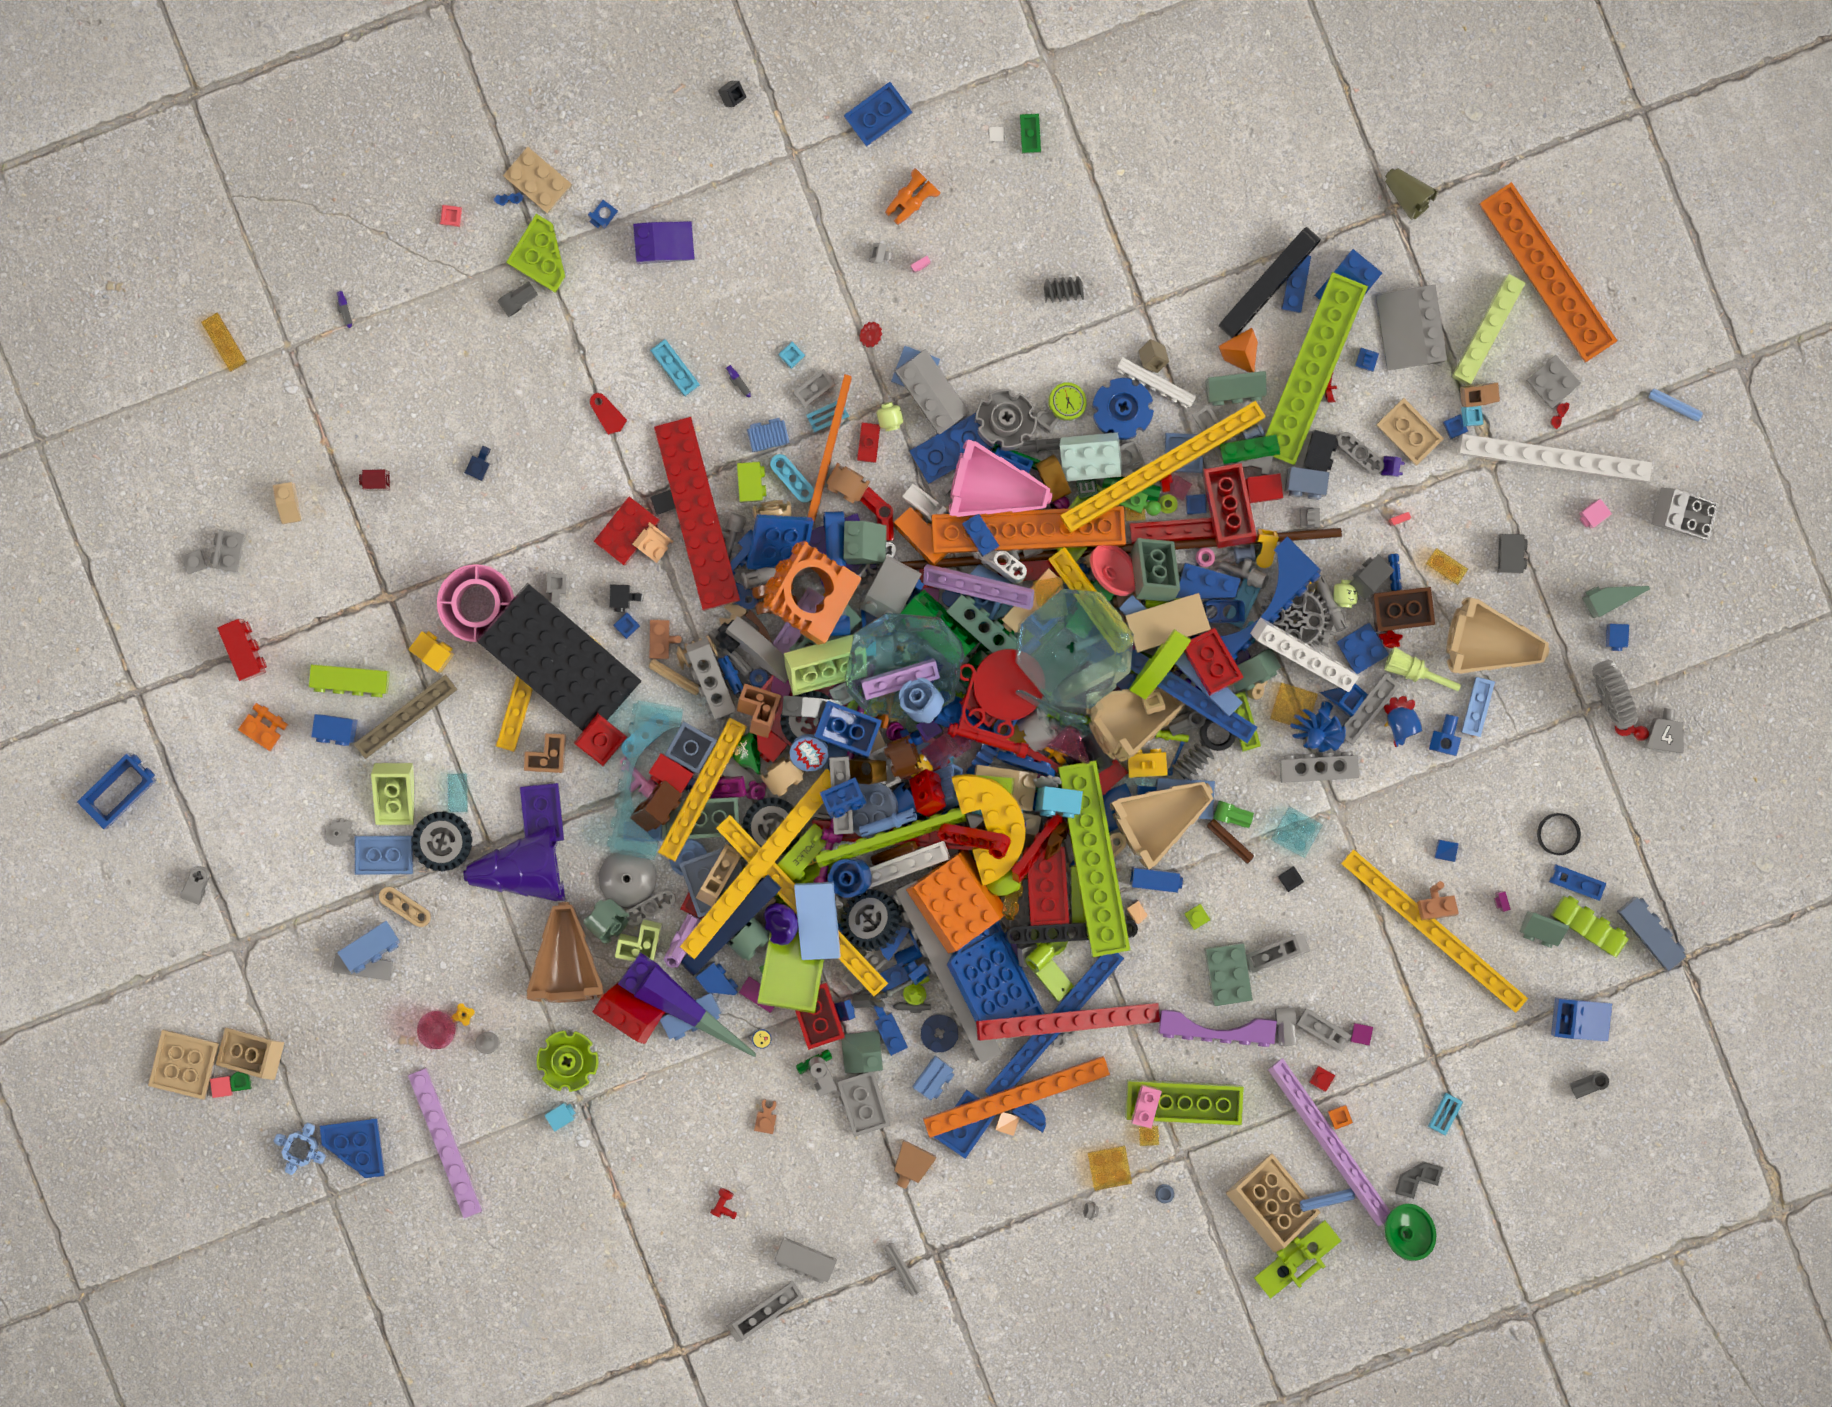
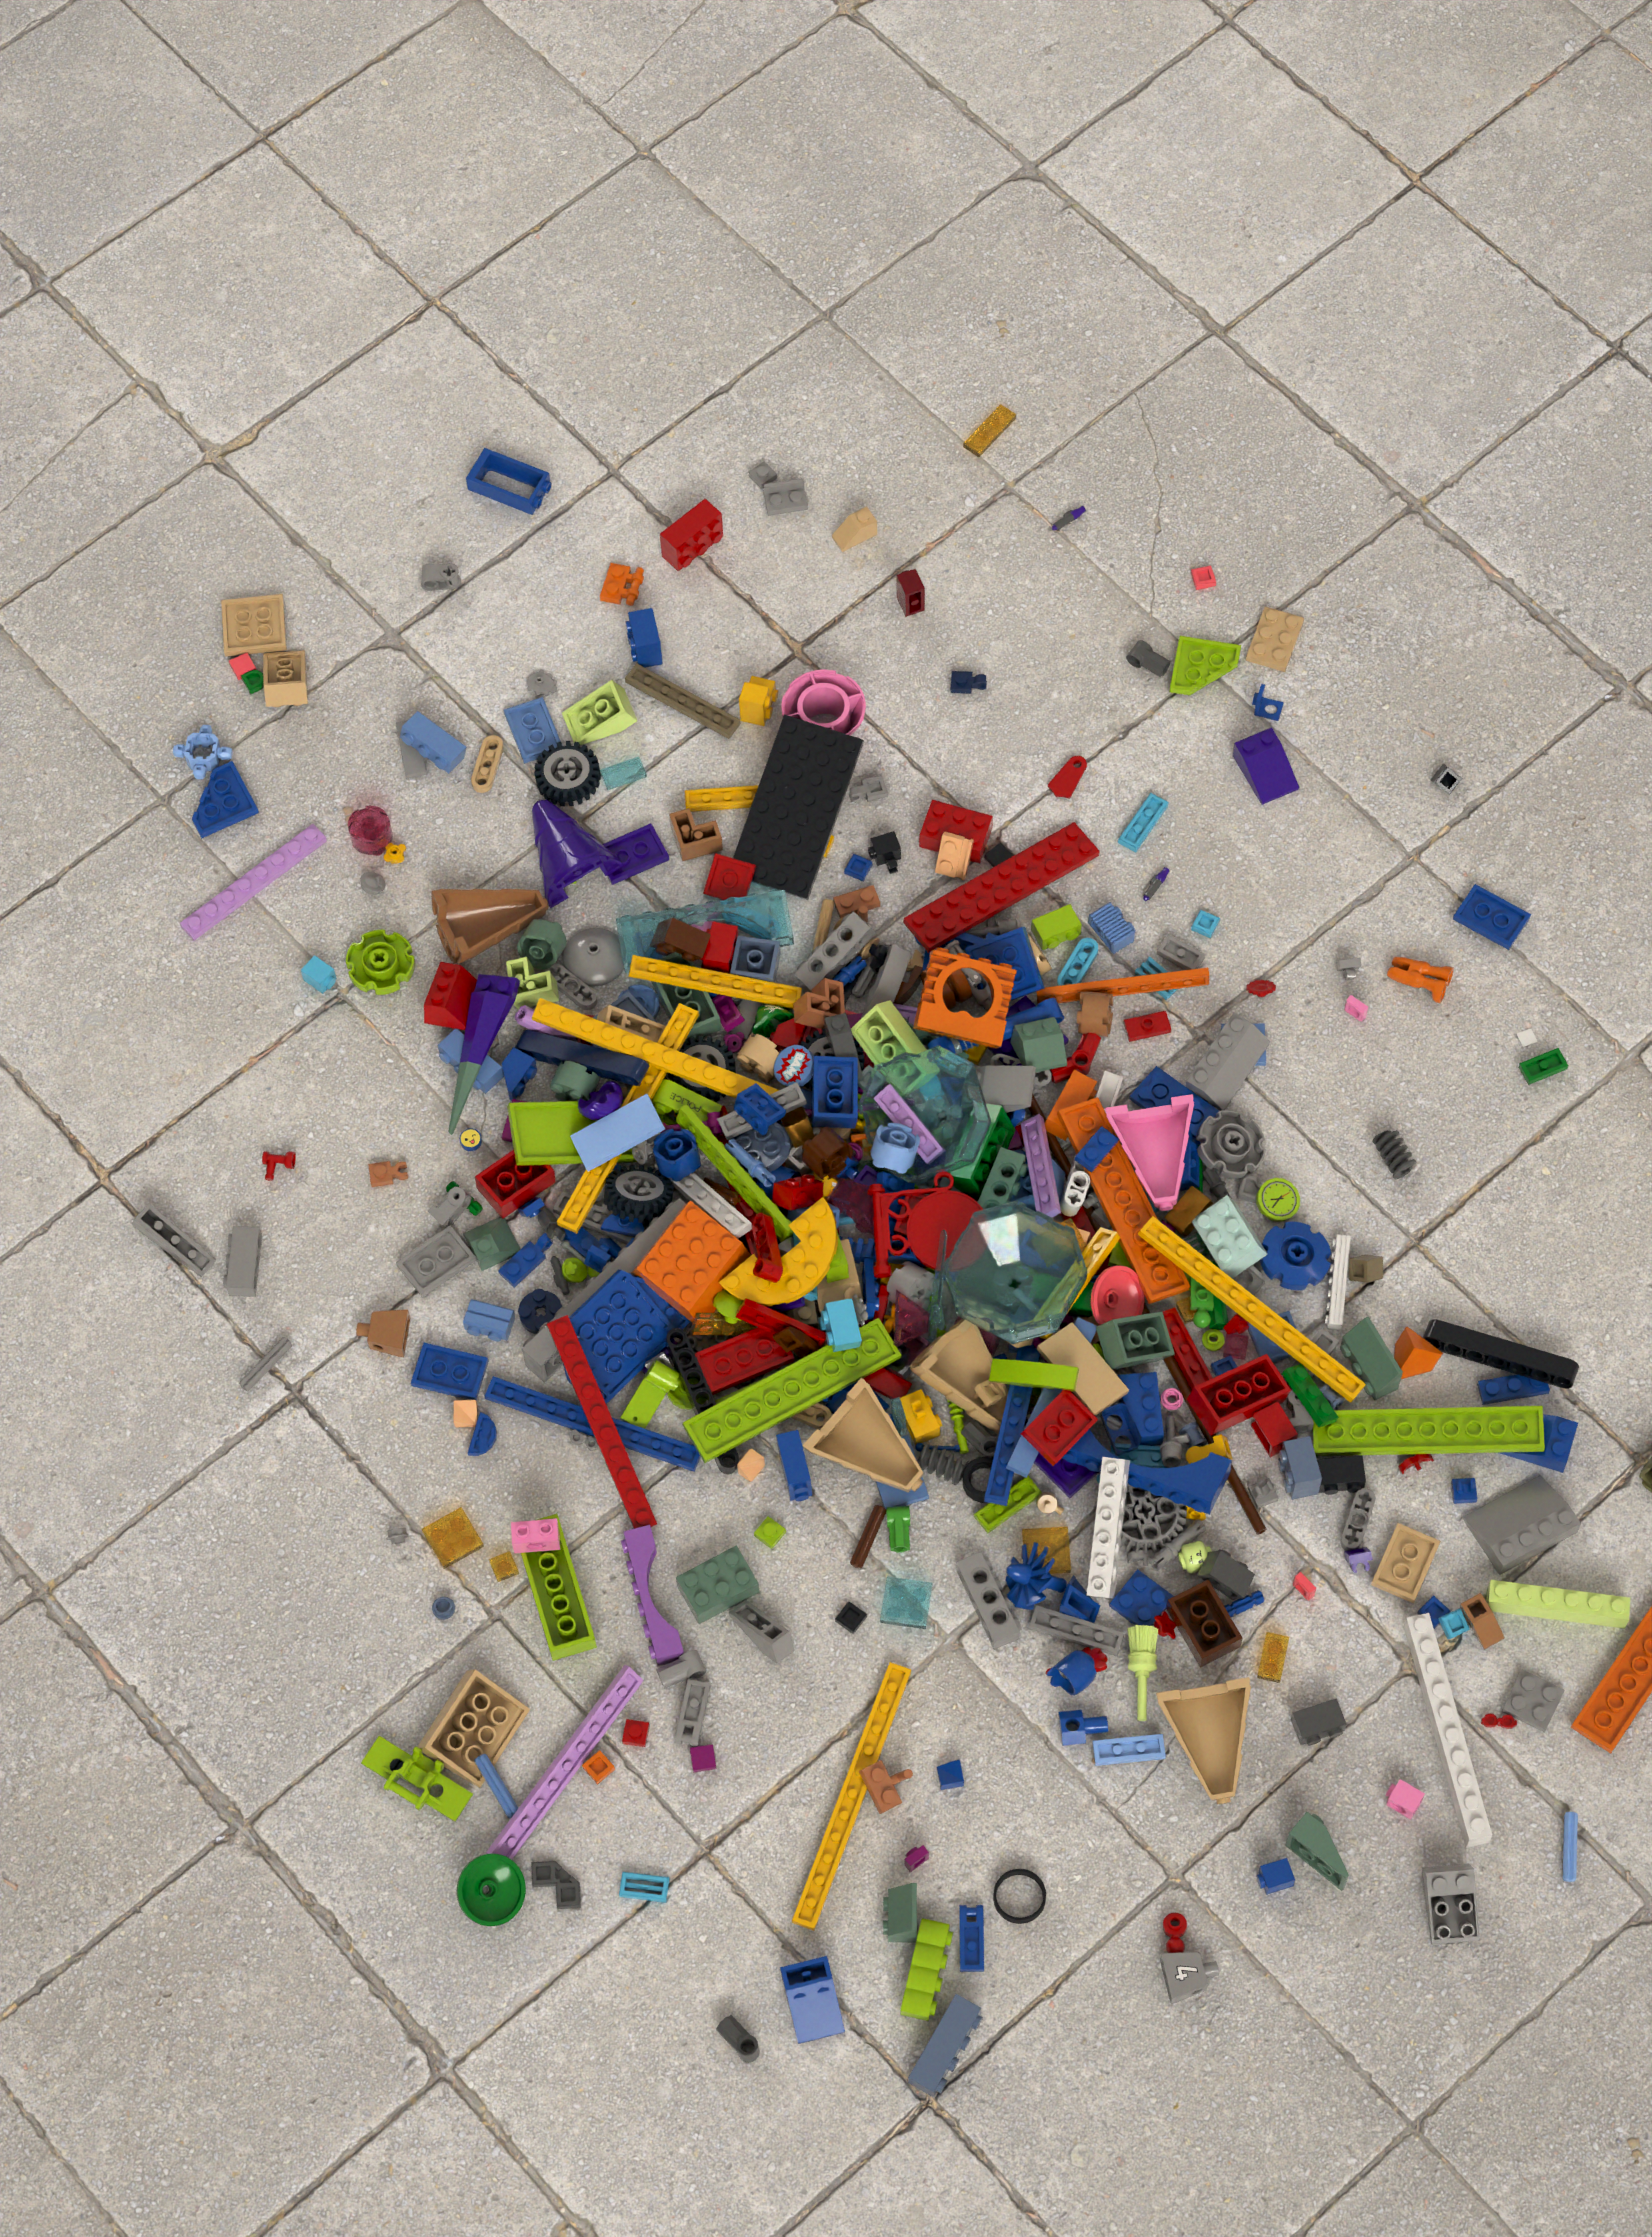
camera: 70 degrees right, 25 degrees down
(349, 679) = (700, 639): lime brick -> none
(514, 198) = (1241, 617): blue piece -> none
(758, 672) = (854, 1001): blue plate -> none
(889, 416) = (1183, 1033): yellowish green head -> none
(1016, 1096) = (499, 1410): orange plate -> none
(1257, 668) = (1071, 1486): sand green brick -> none
(1615, 694) = (1207, 1886): light grey gear -> none

